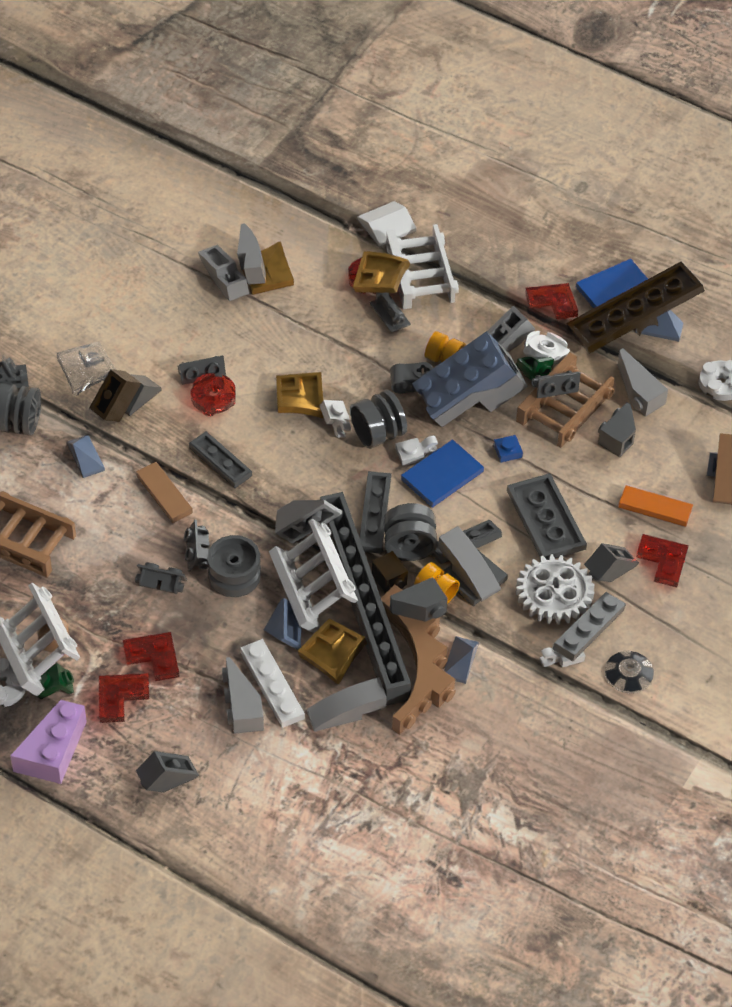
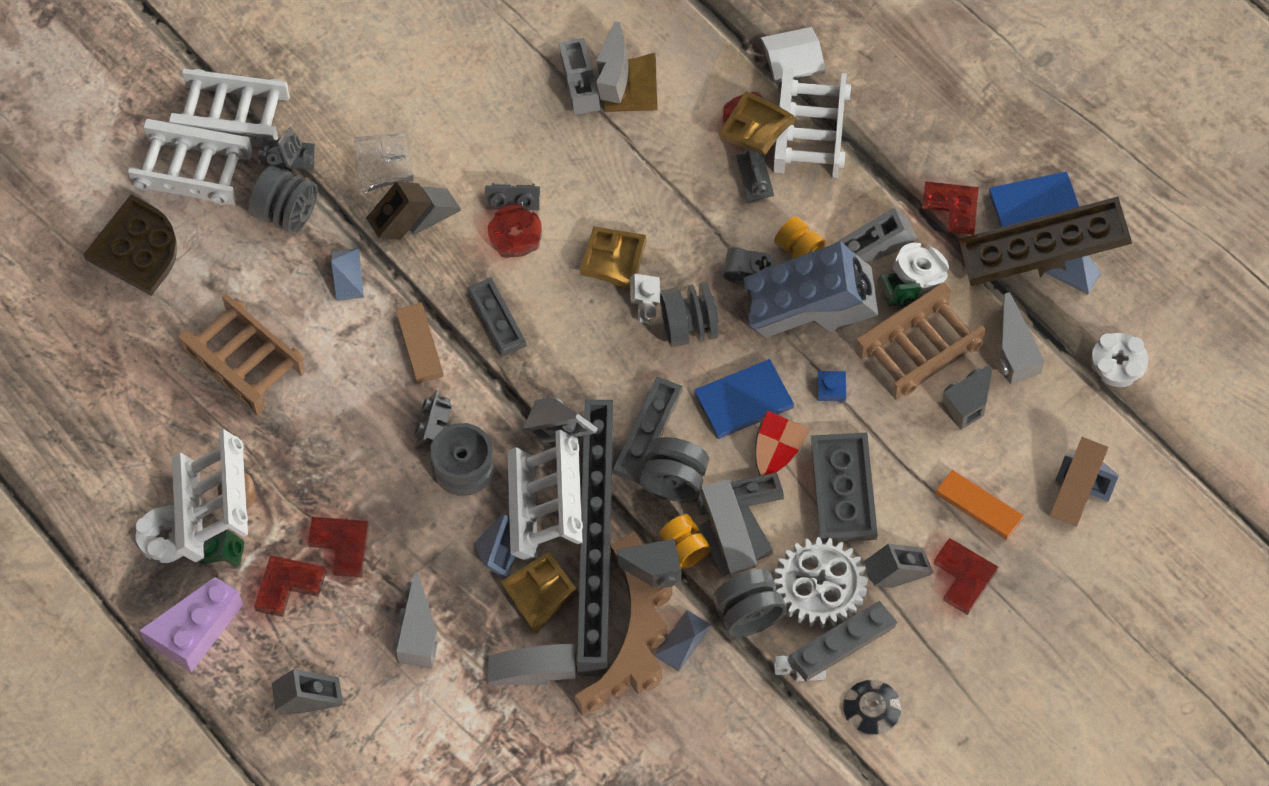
camera: 20 degrees right, 10 degrees up
(152, 574) = (369, 445): dark grey hinge -> none
(272, 683) = (460, 613): white plate -> none
(389, 571) = (637, 512): dark brown brick -> none
(412, 451) = (719, 361): white plate -> none
(483, 495) = (777, 442): none -> shield
(507, 614) = (749, 603): none -> dark grey wheel
(557, 384) = (919, 322): dark grey hinge -> none

